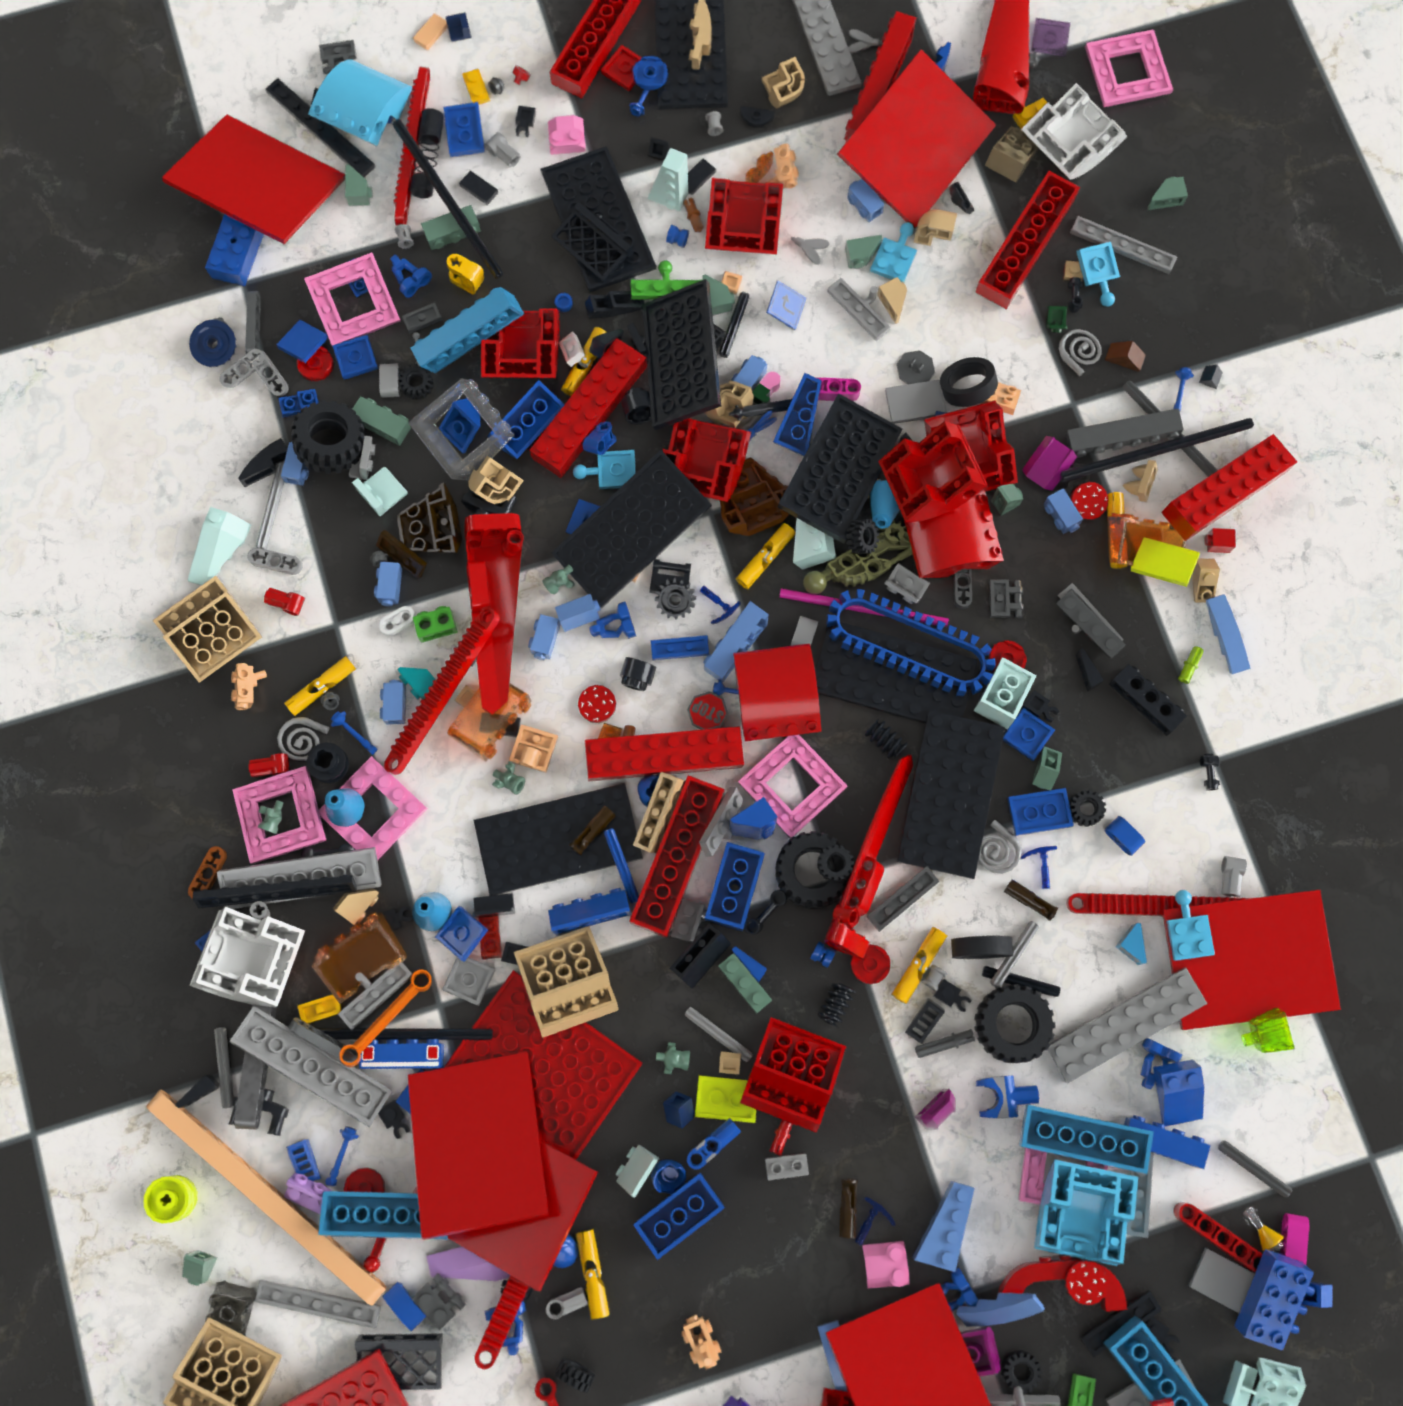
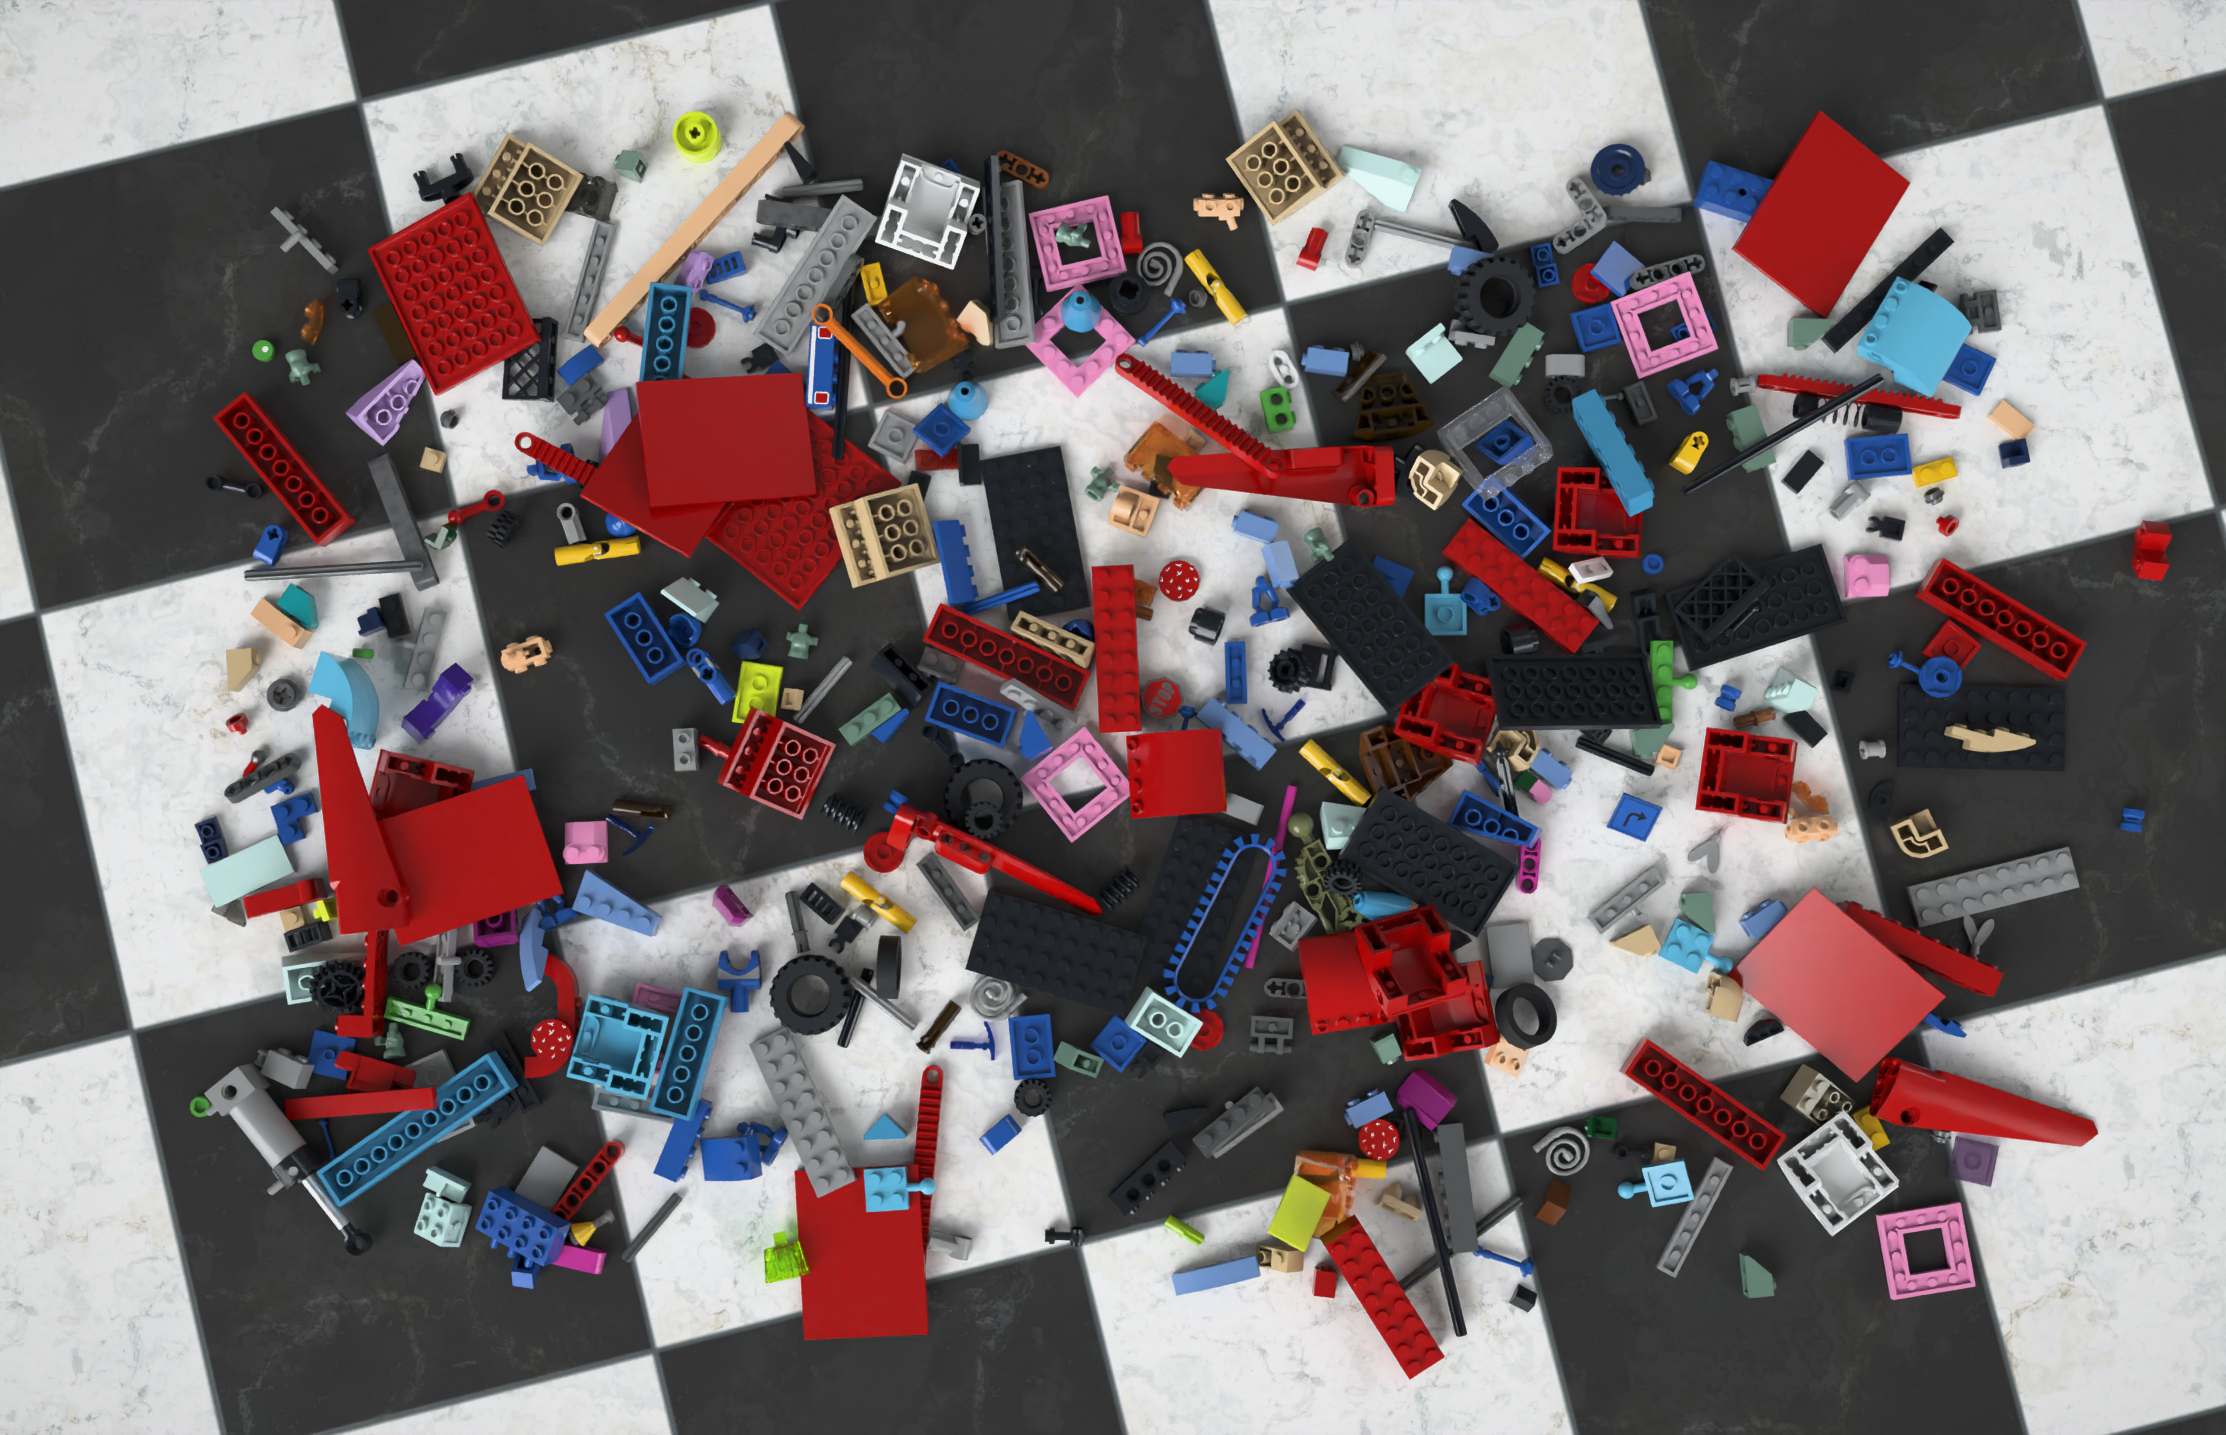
camera: 90 degrees right, 10 degrees up
(304, 300) = (1666, 270): none -> dark grey beam
(388, 61) = (1970, 369): none -> blue tile

